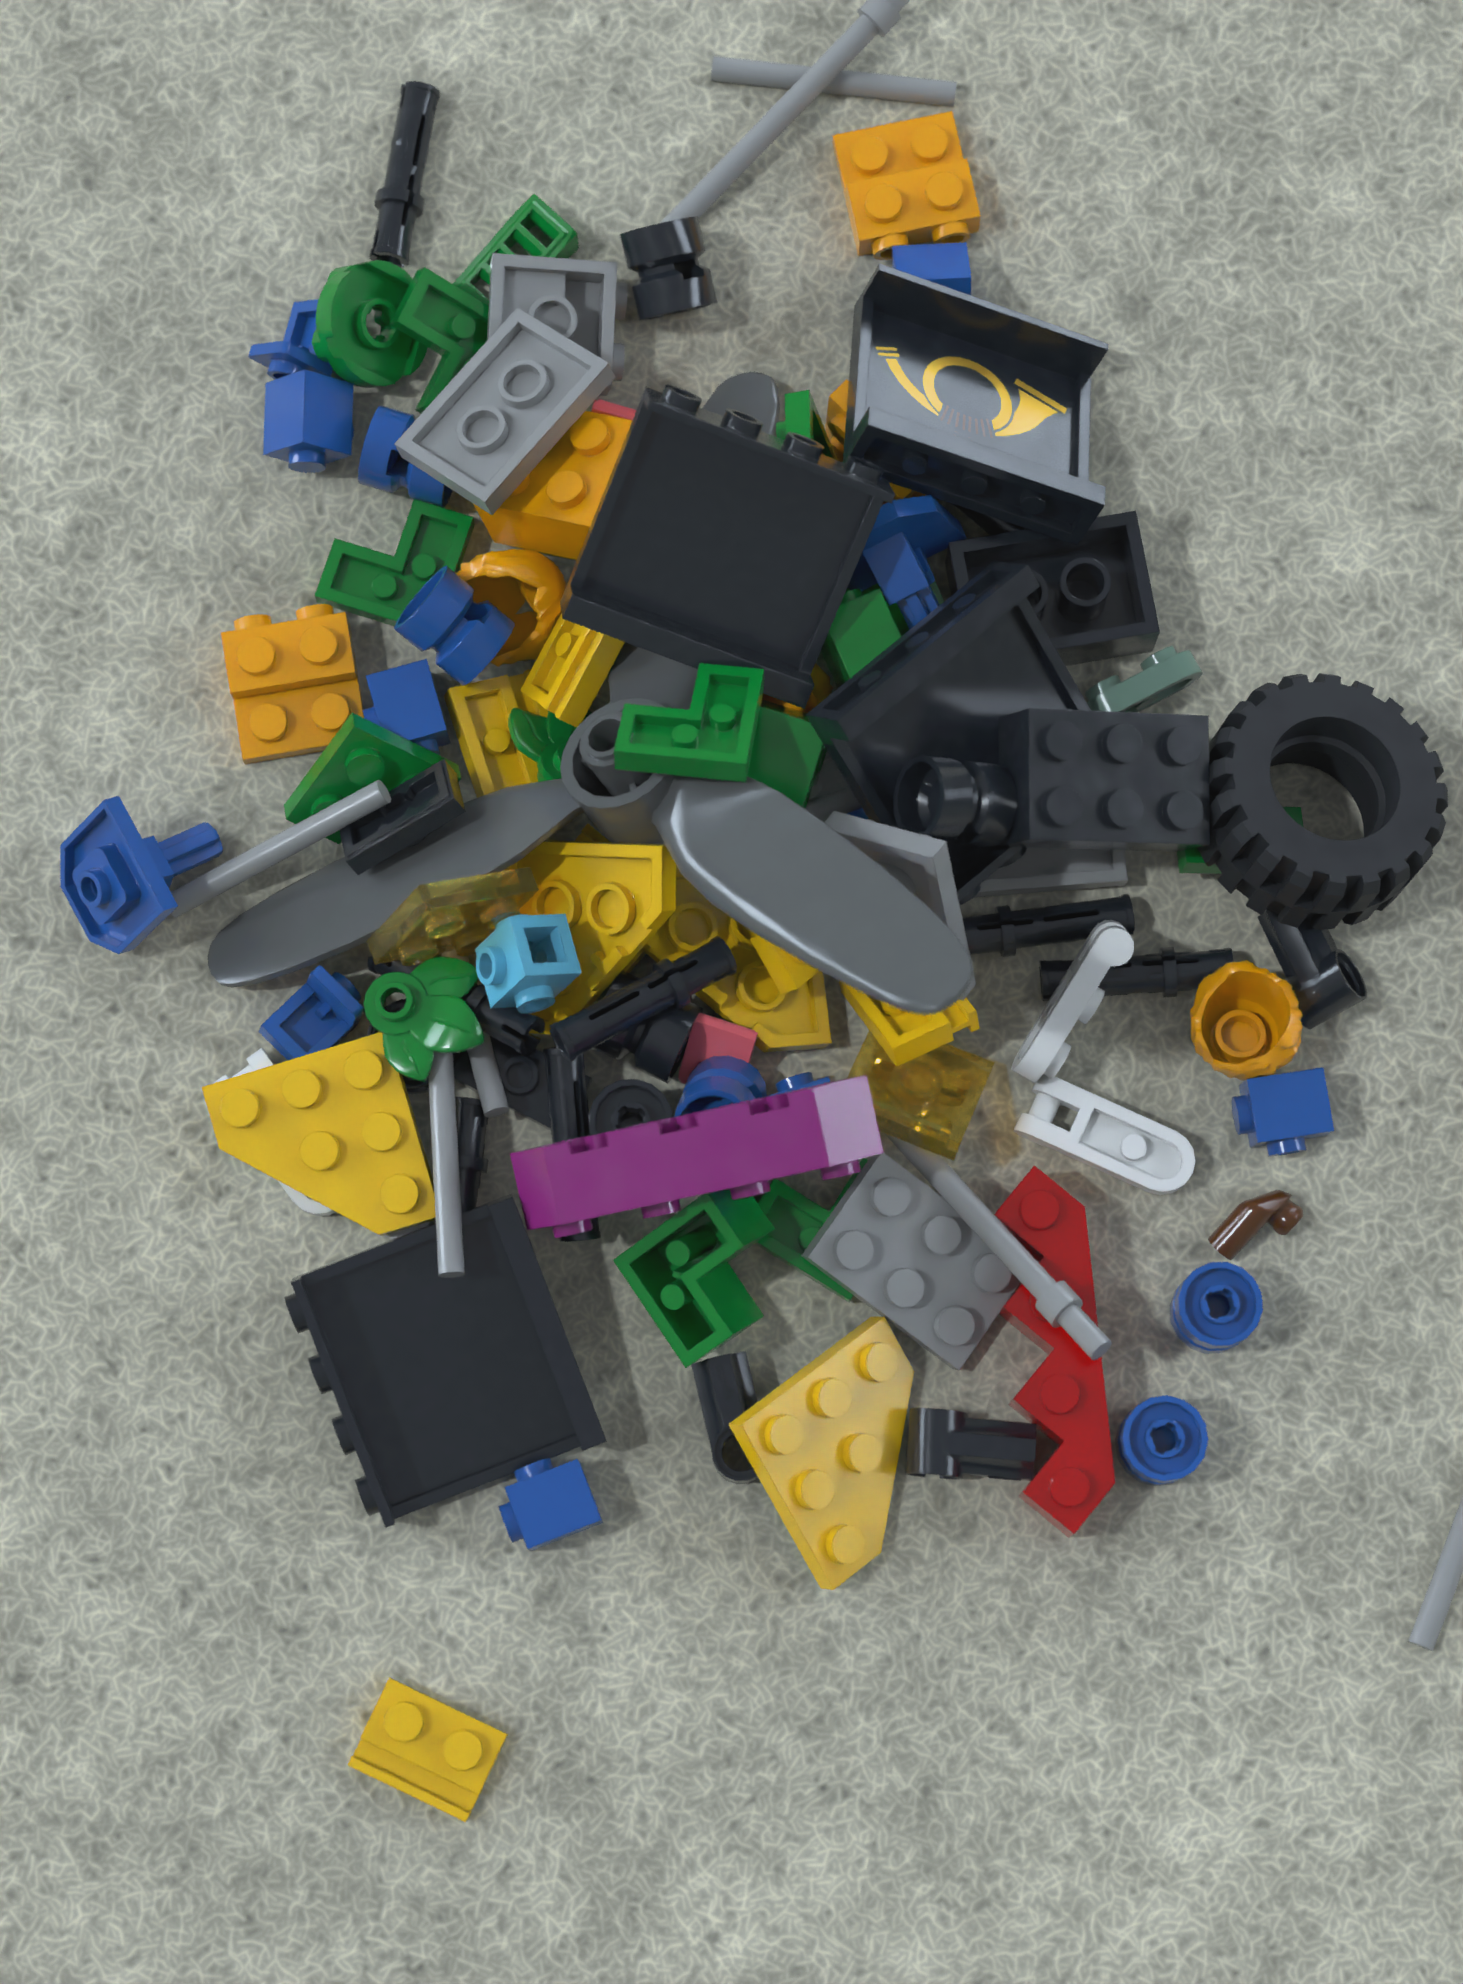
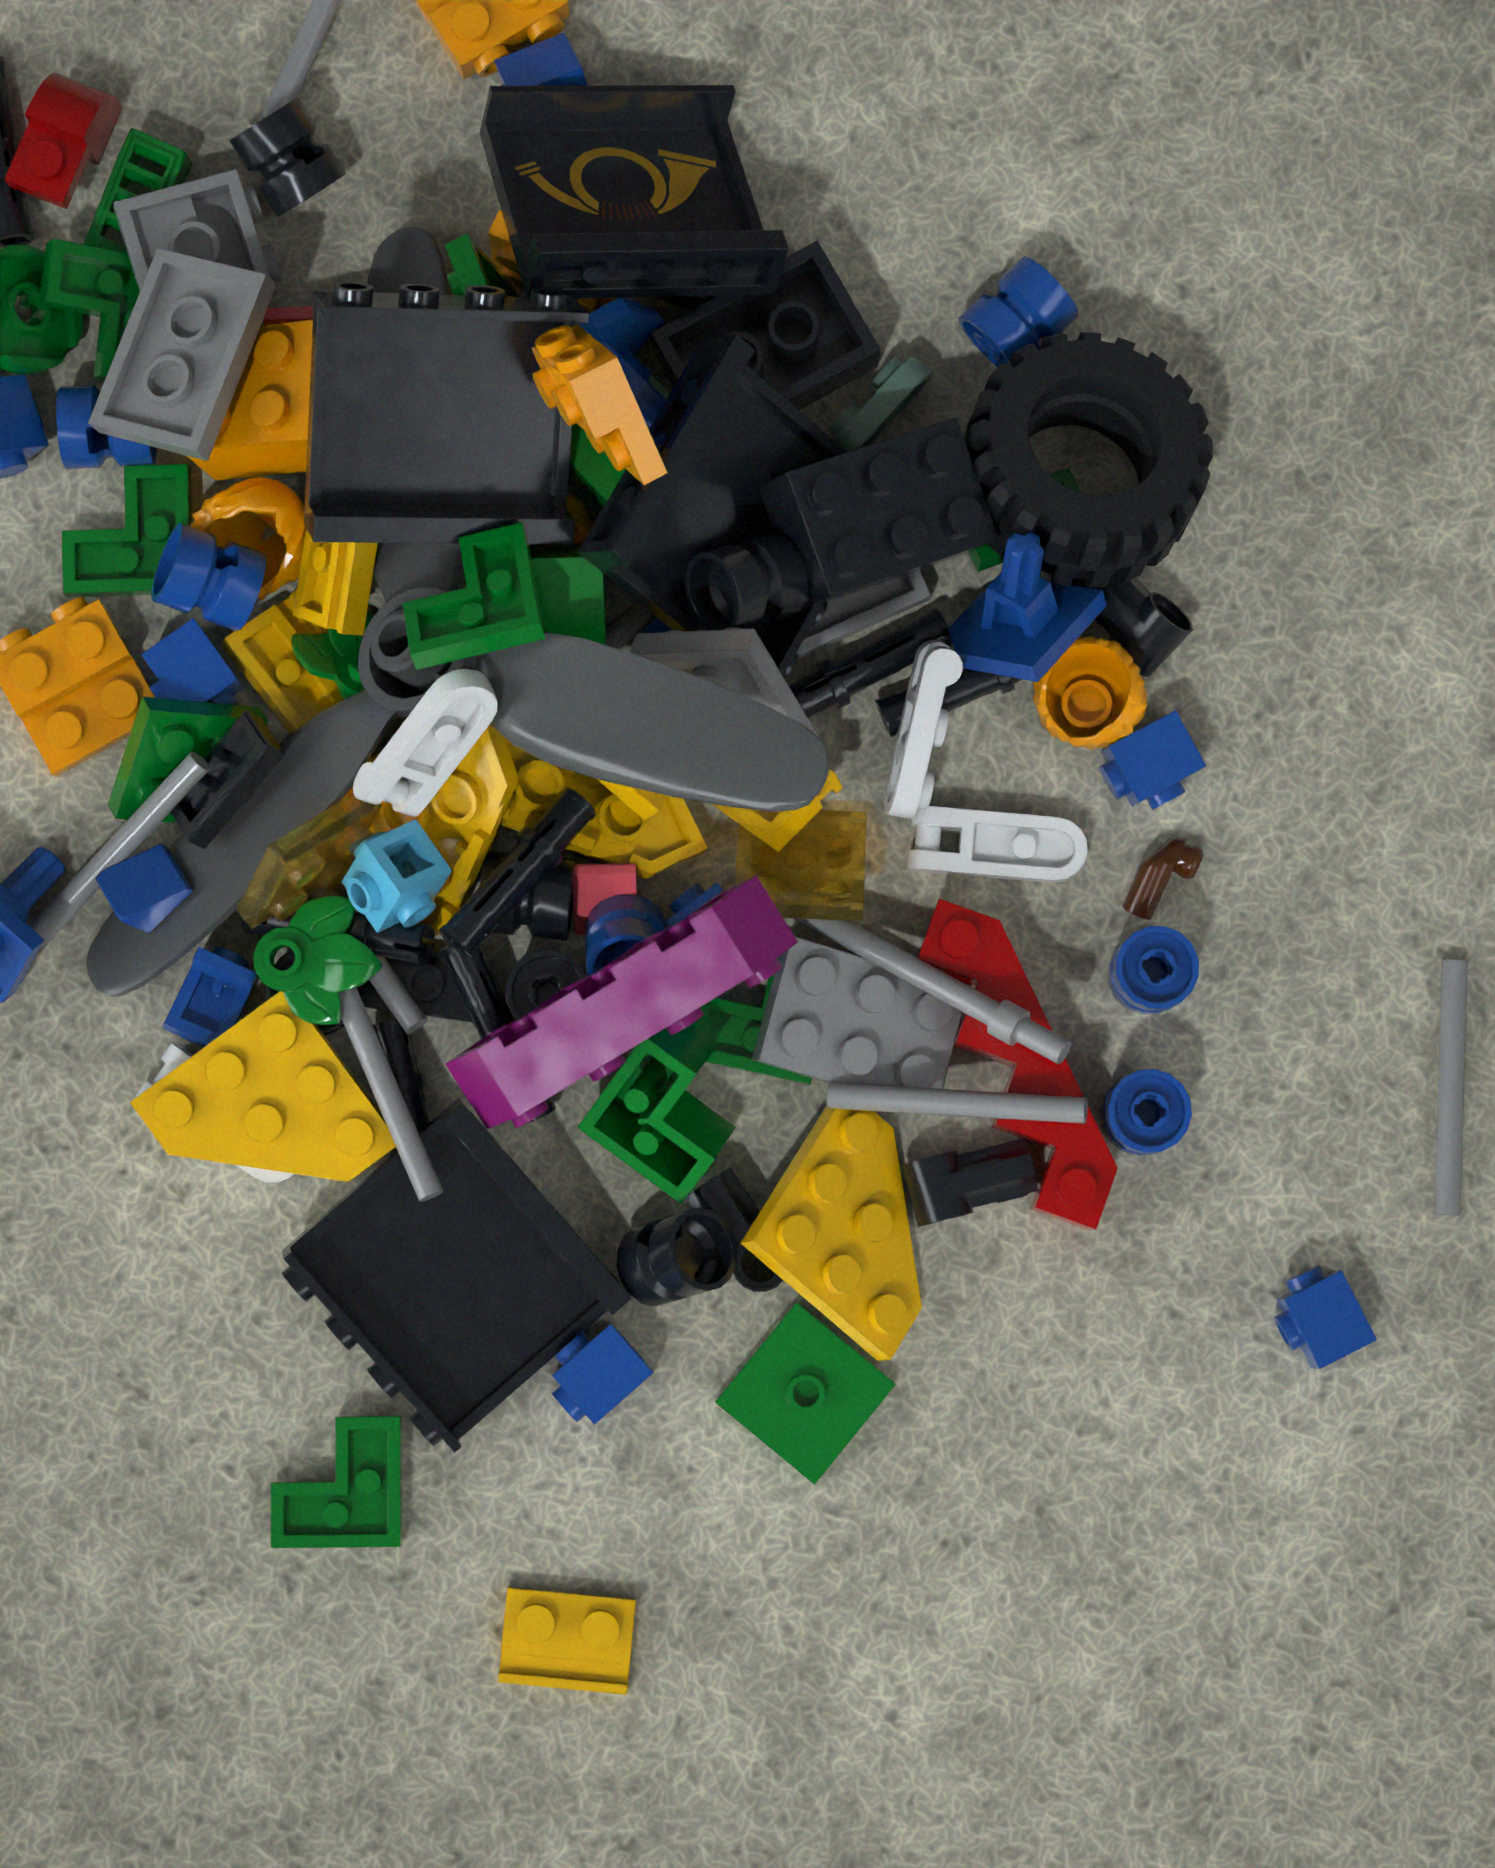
camera: 25 degrees left, 5 degrees up
(274, 1548) = (360, 1504): none -> green plate
(289, 892) = (145, 887): none -> blue slope
(471, 176) = (64, 131): none -> red brick
(603, 844) = (429, 743): none -> white plate
(663, 1417) = (676, 1257): none -> black wheel
(740, 1594) = (805, 1393): none -> green plate
(872, 567) = (594, 393): none -> light orange plate
(983, 1365) = (957, 1102): none -> light grey bar
(1207, 927) = (1022, 619): none -> blue piece
(1264, 1700) = (1322, 1317): none -> blue brick
(1309, 644) = (1022, 313): none -> blue wheel

